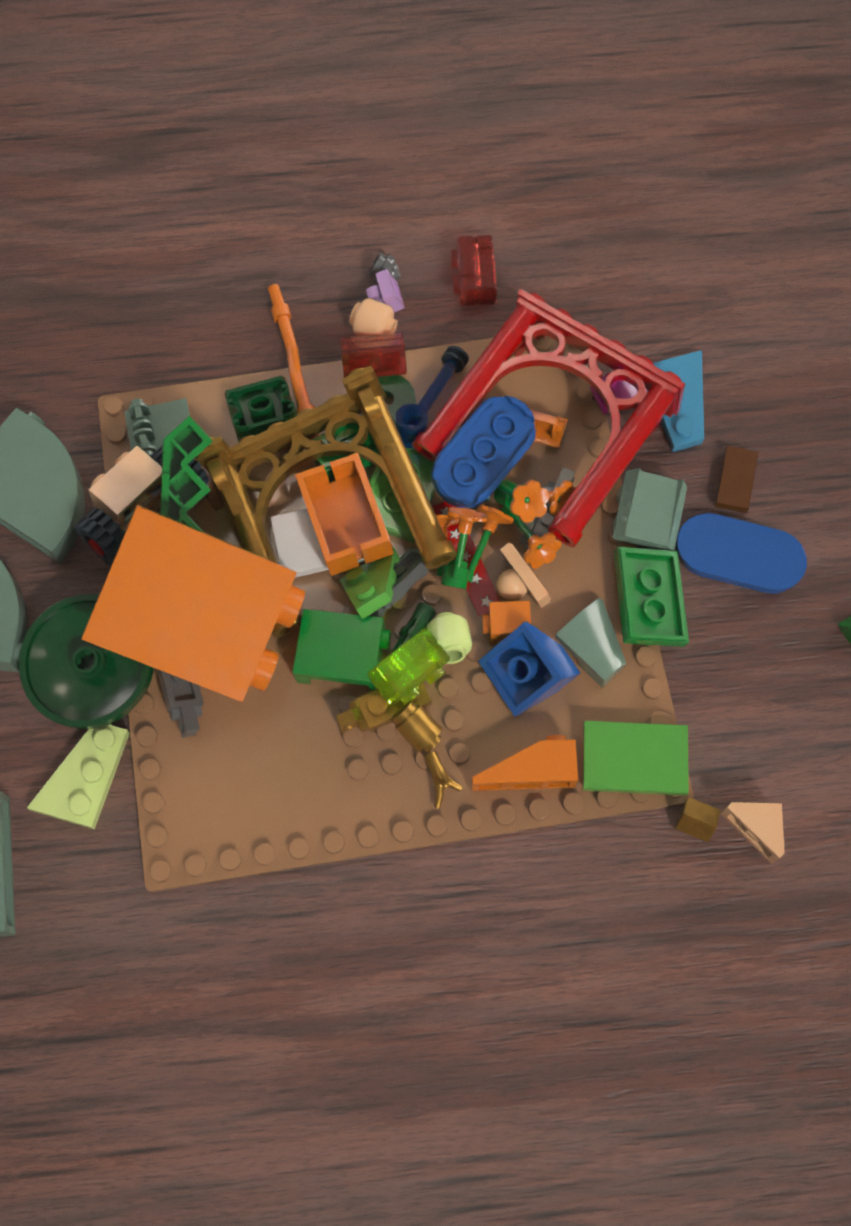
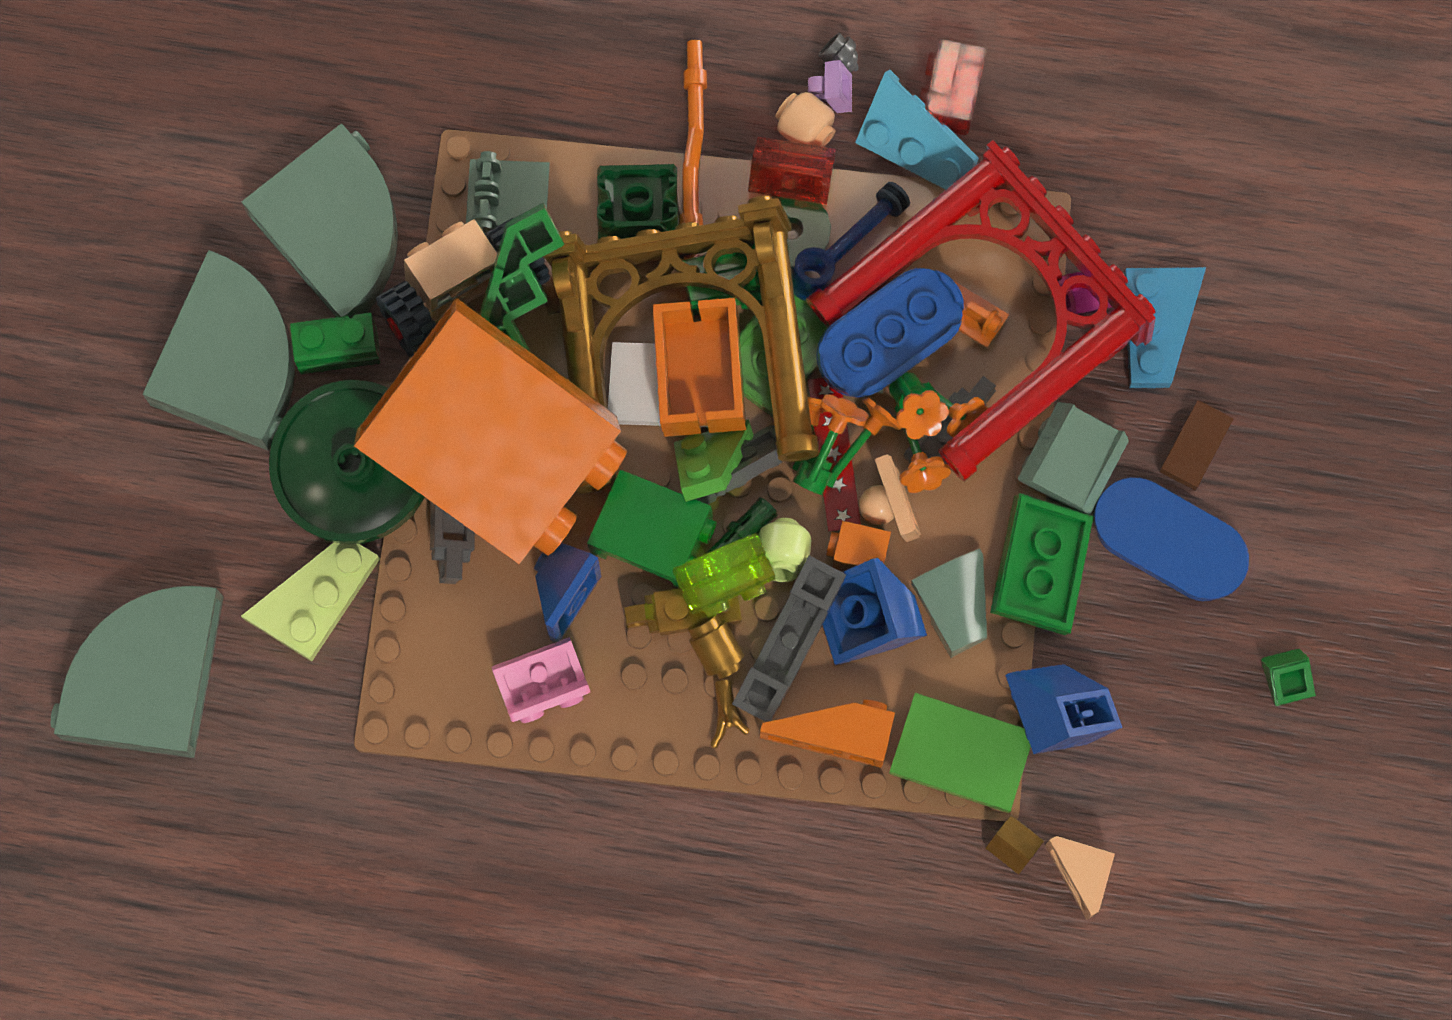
camera: 15 degrees right, 5 degrees up
(52, 574) = (335, 343): none -> green brick
(283, 711) = (564, 586): none -> blue slope
(285, 792) = (541, 681): none -> bright pink bracket
(455, 310) = (912, 137): none -> medium azure wing
(474, 705) = (790, 639): none -> dark grey slope
(703, 700) = (1062, 707): none -> blue slope

